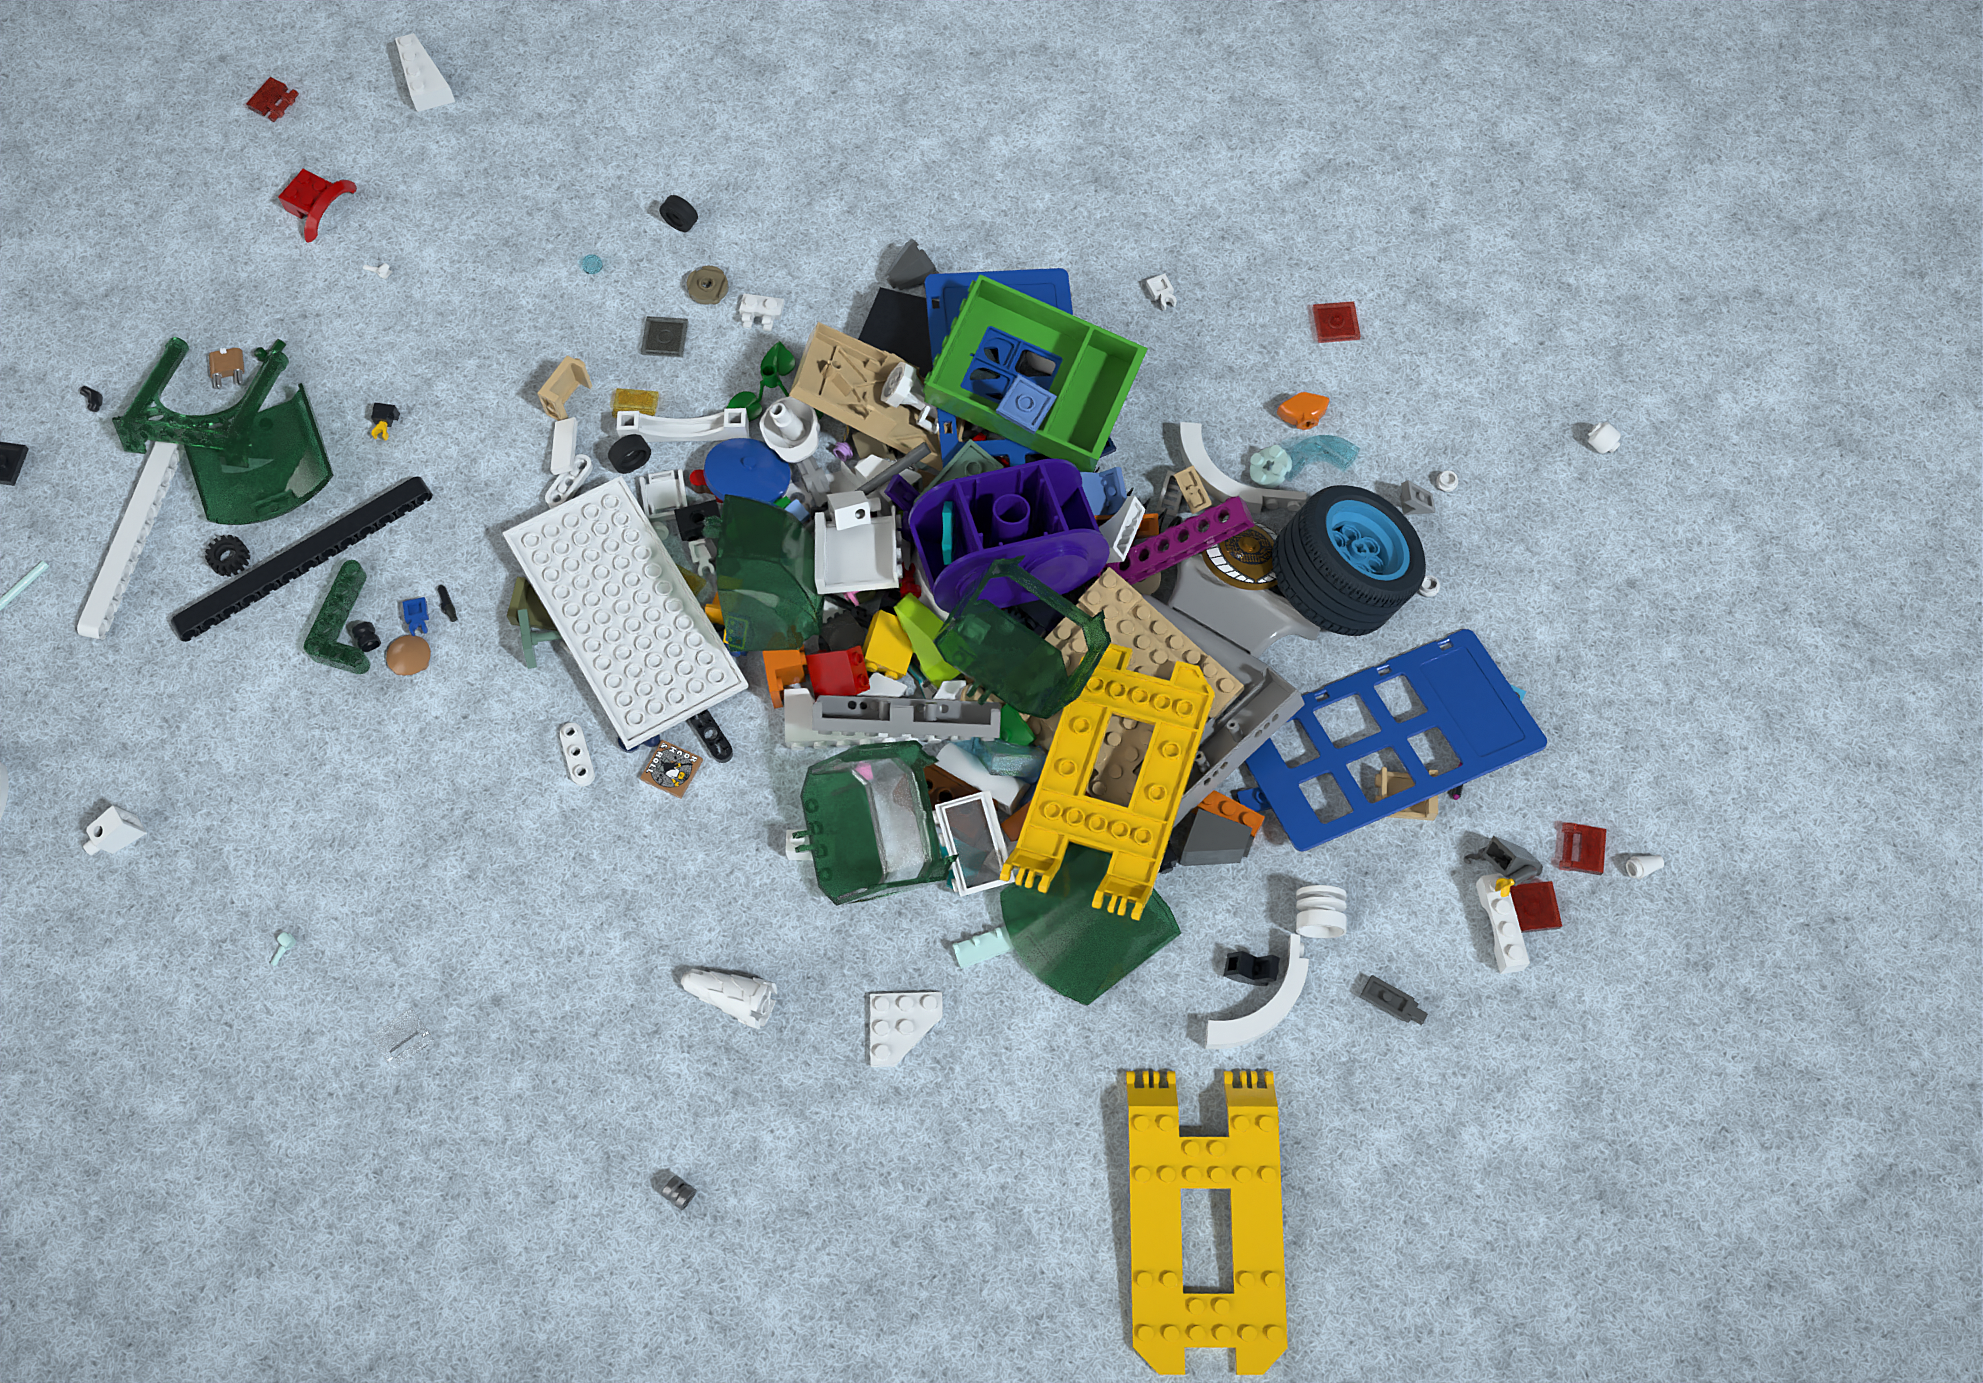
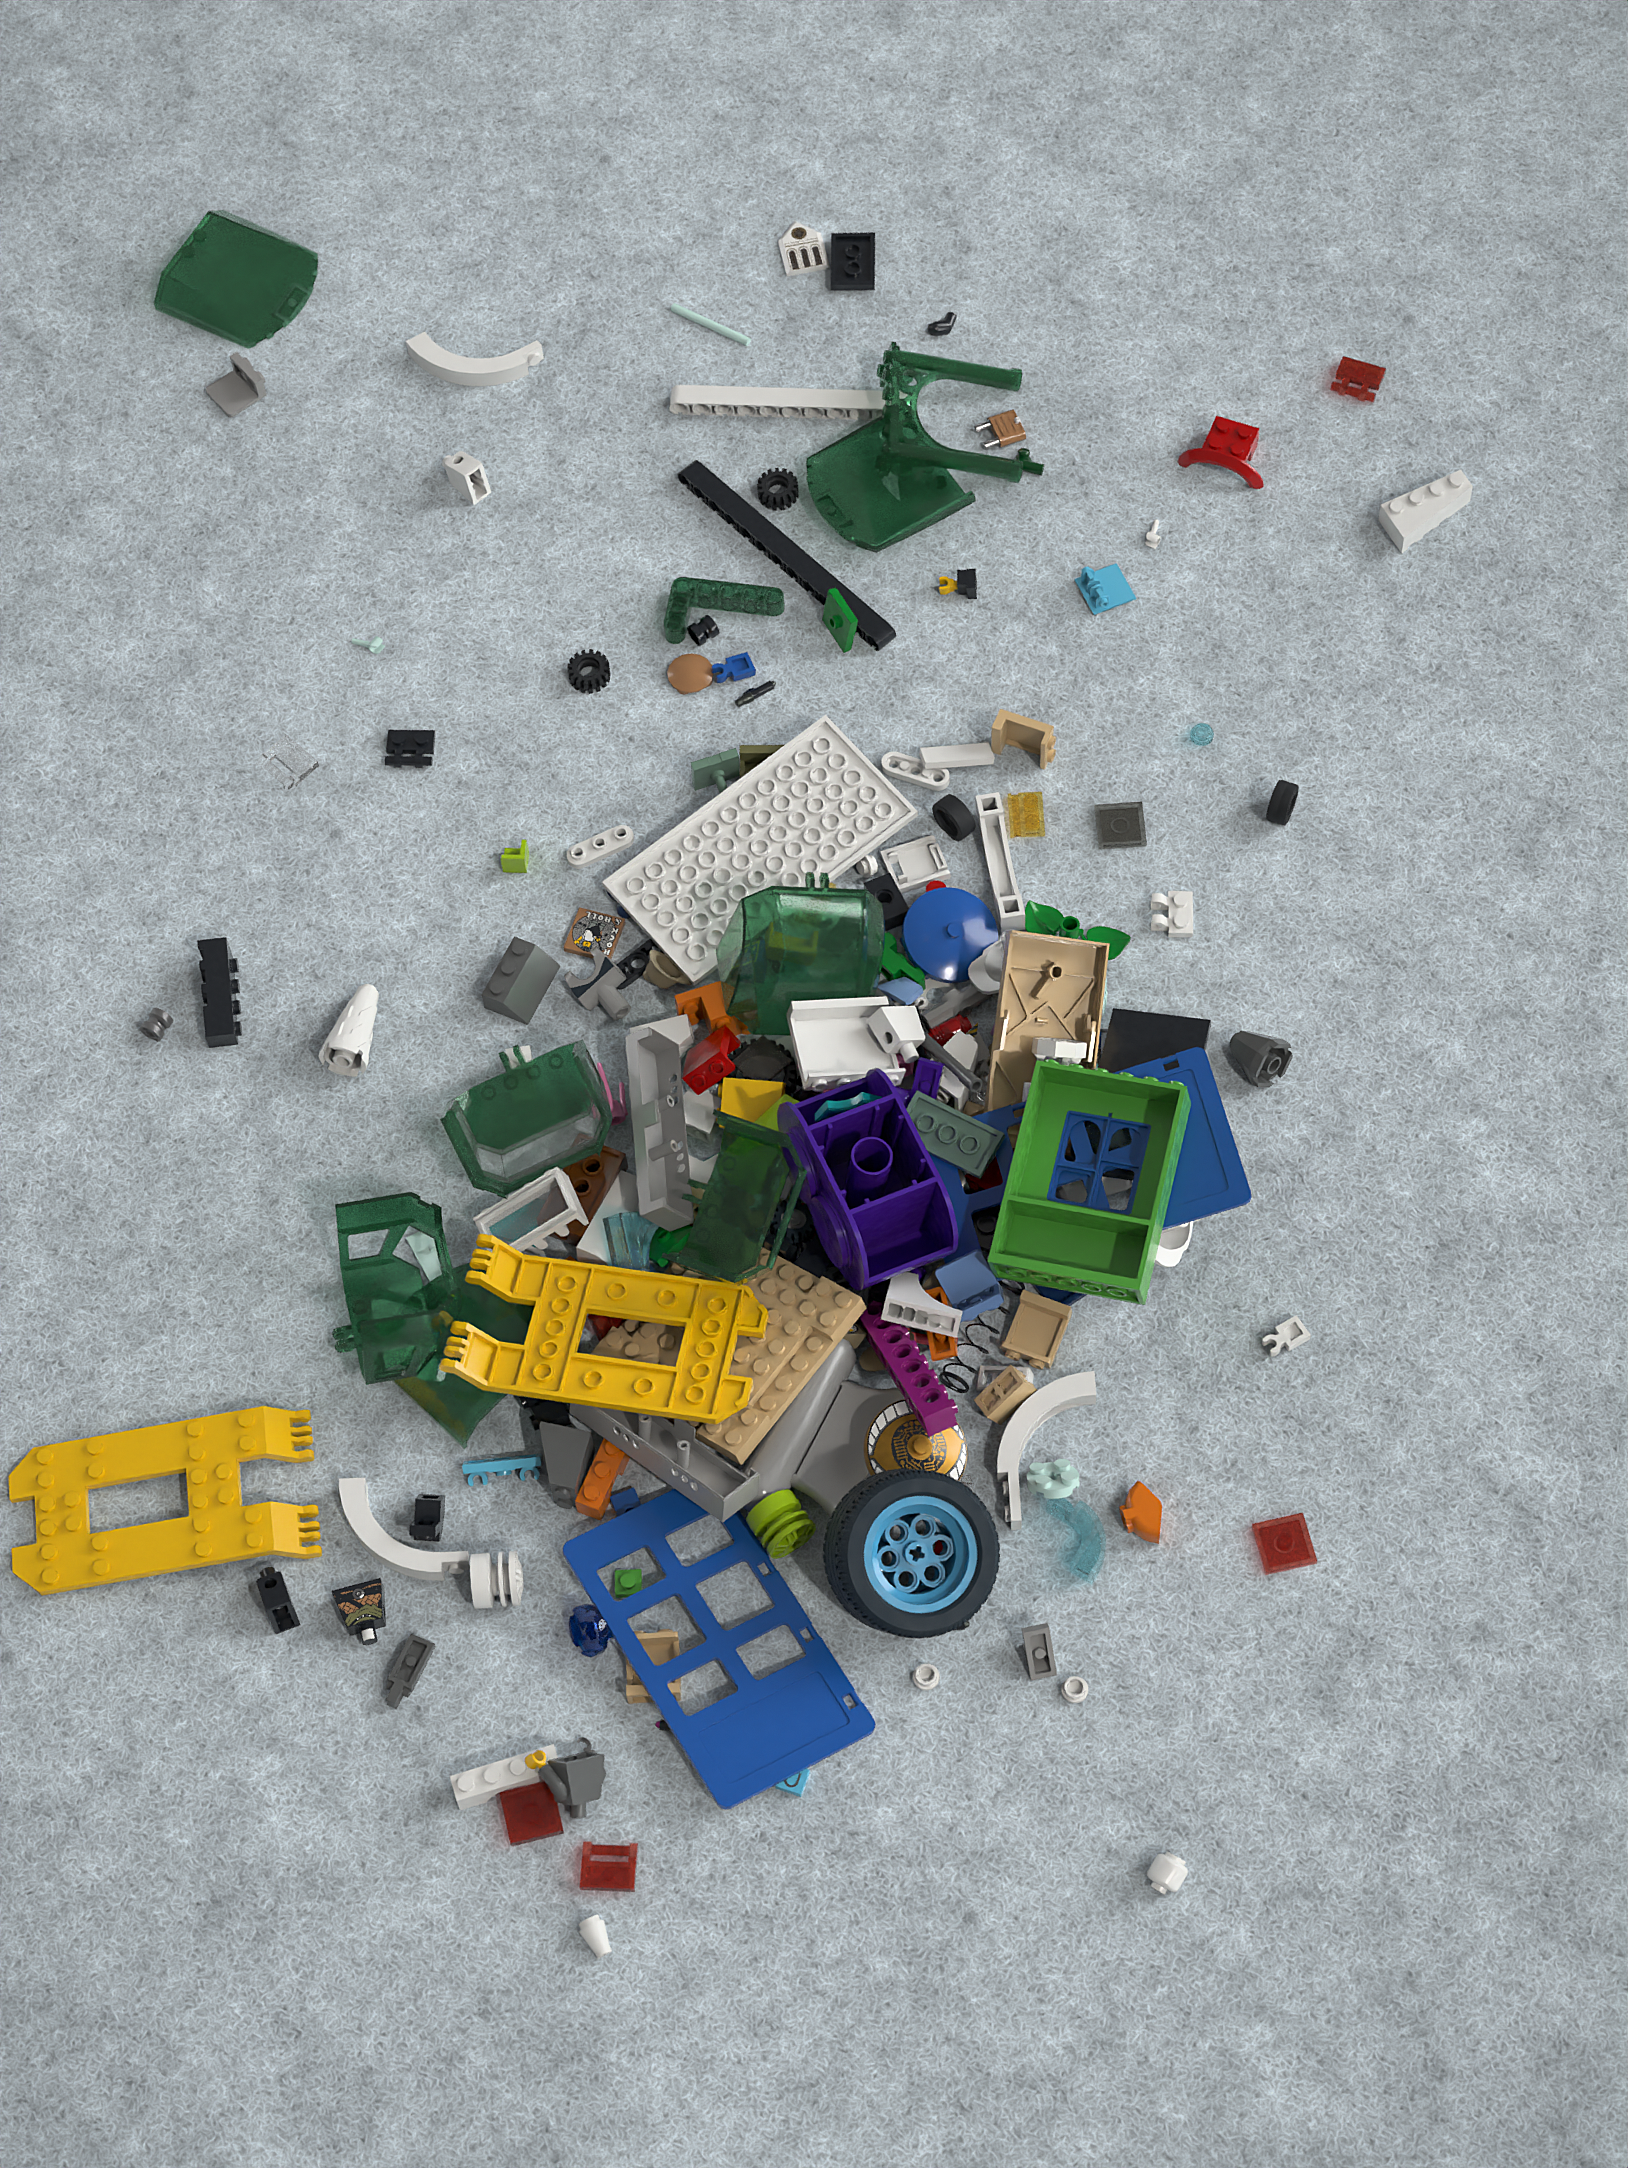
camera: 85 degrees right, 5 degrees down
(386, 753) = (587, 660): none -> black tyre
(395, 516) = (839, 620): none -> green plate
(412, 915) = (410, 742): none -> black plate
(422, 313) = (1104, 588): none -> medium azure hinge
(572, 828) = (516, 859): none -> lime panel
(660, 1123) = (219, 992): none -> black wedge
(708, 838) = (520, 981): none -> dark grey slope
(710, 295) = (1199, 865): dark tan plate -> none
(730, 709) = (662, 971): none -> dark tan piece
(734, 763) = (601, 986): none -> light grey connector
(838, 481) = (947, 1029): none -> red head
(900, 1023) = (335, 1184): white plate -> none
(1026, 404) = (1032, 1166): medium blue plate -> none
(1047, 980) = (386, 1294): none -> clear green windscreen
(1136, 461) = (1036, 1330): none -> tan panel
(1204, 900) = (502, 1466): none -> medium azure plate
(1296, 667) = (781, 1523): none -> lime wheel
(1325, 806) = (627, 1582): none -> bright green plate
(1329, 1111) = (275, 1595): none -> black torso
(1333, 1036) = (362, 1608): none -> torso
(1374, 838) = (589, 1630): none -> clear blue tile

